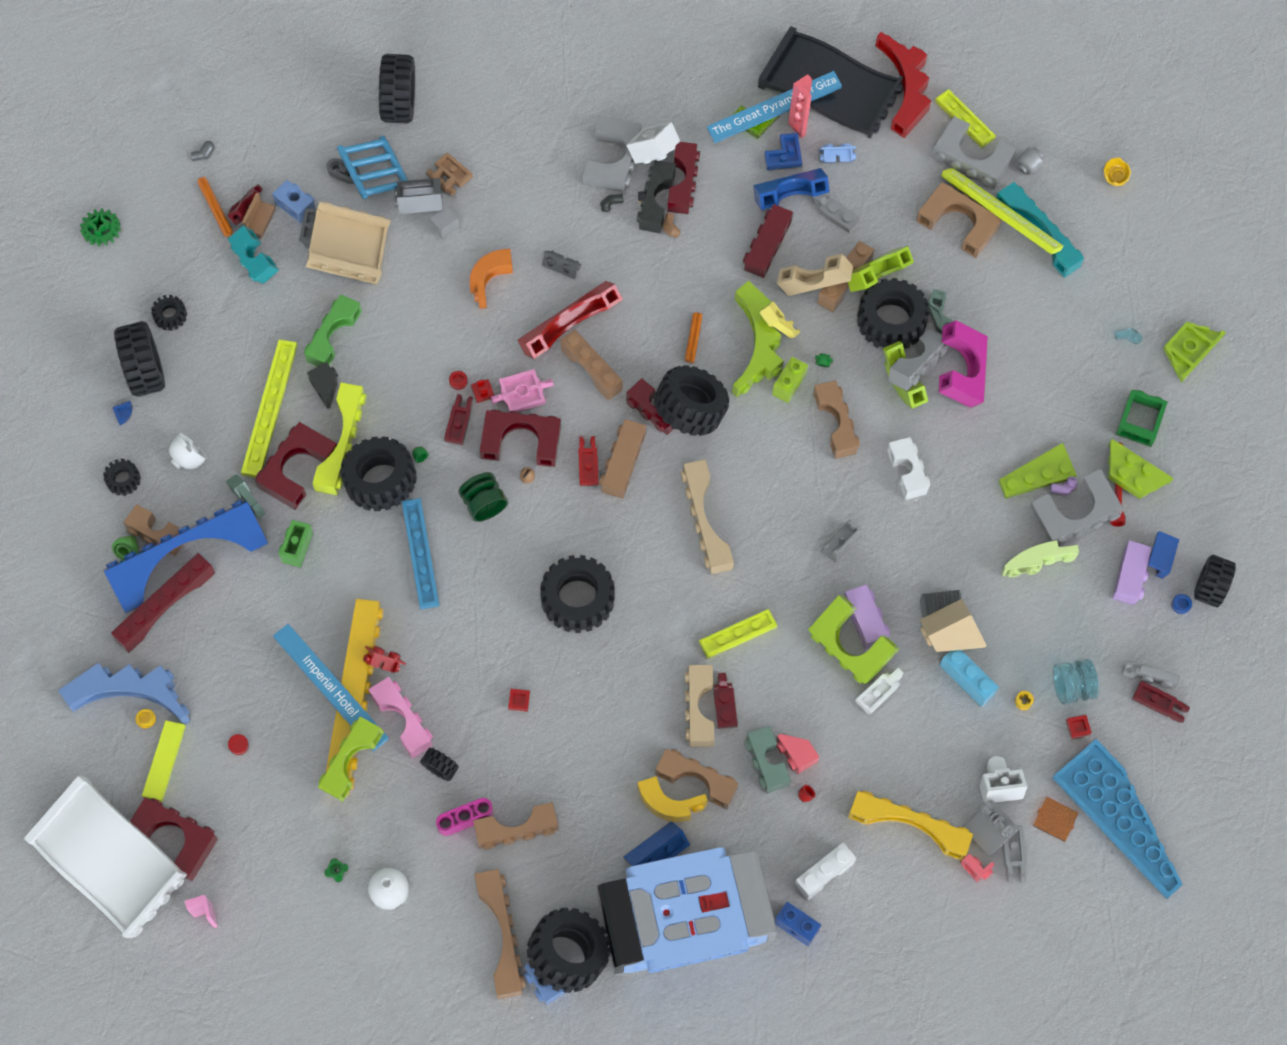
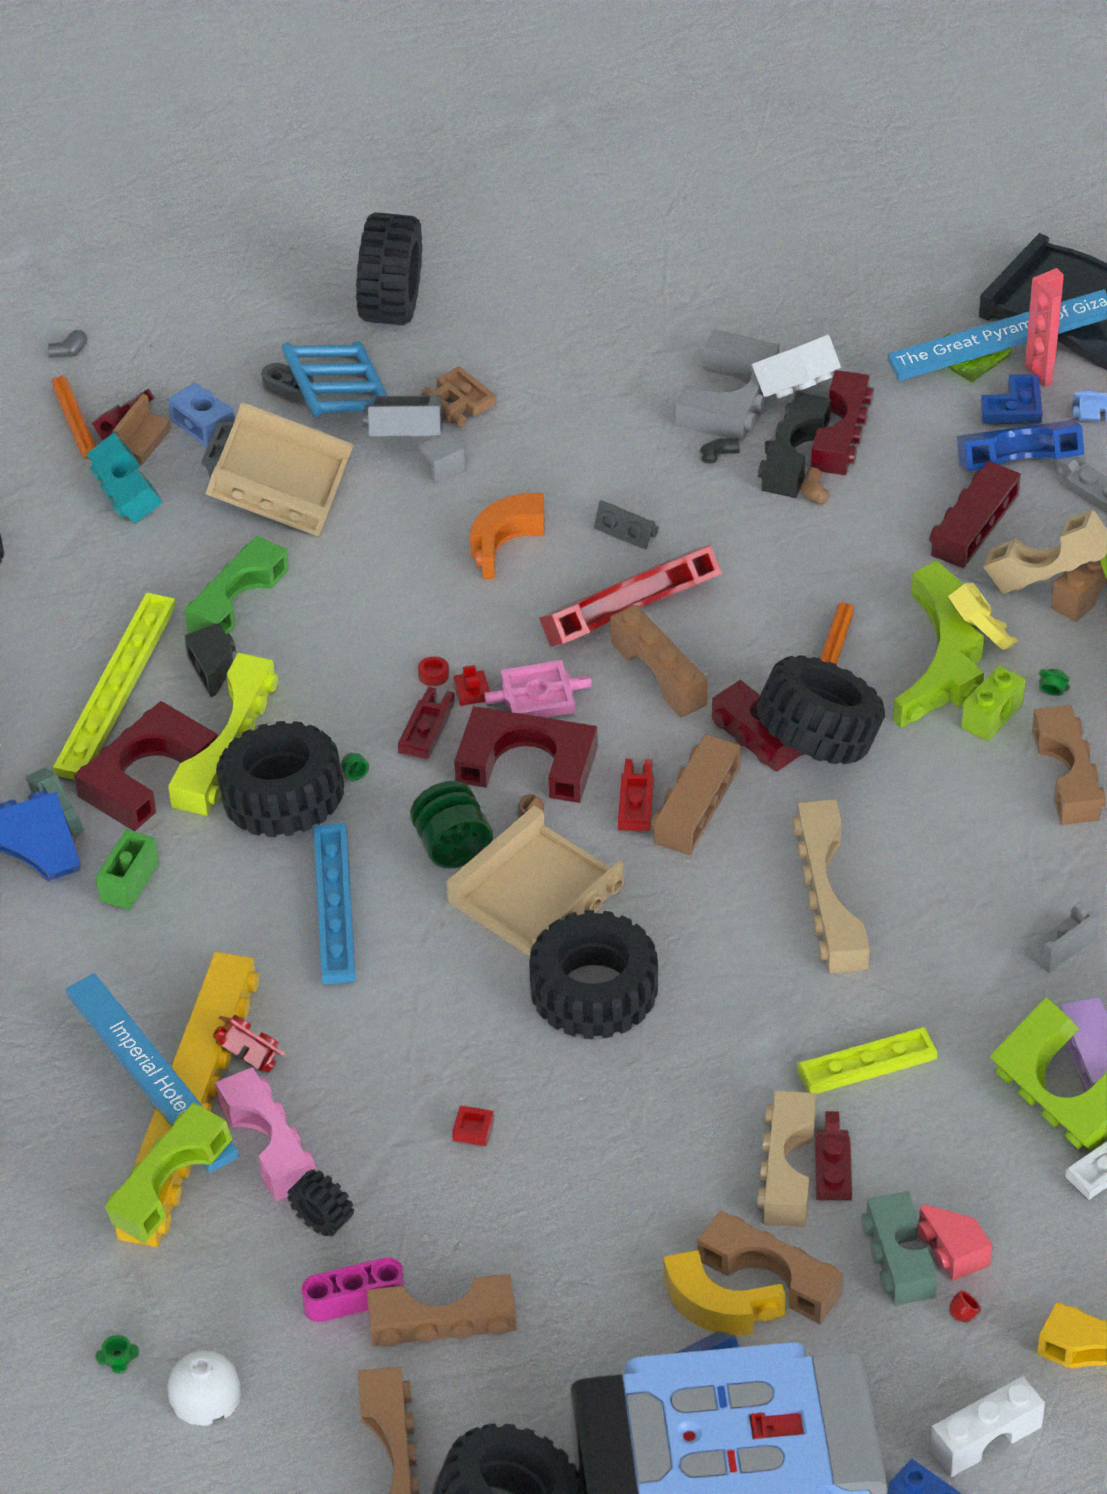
camera: 10 degrees right, 20 degrees down
(535, 530) = (530, 881): none -> tan panel

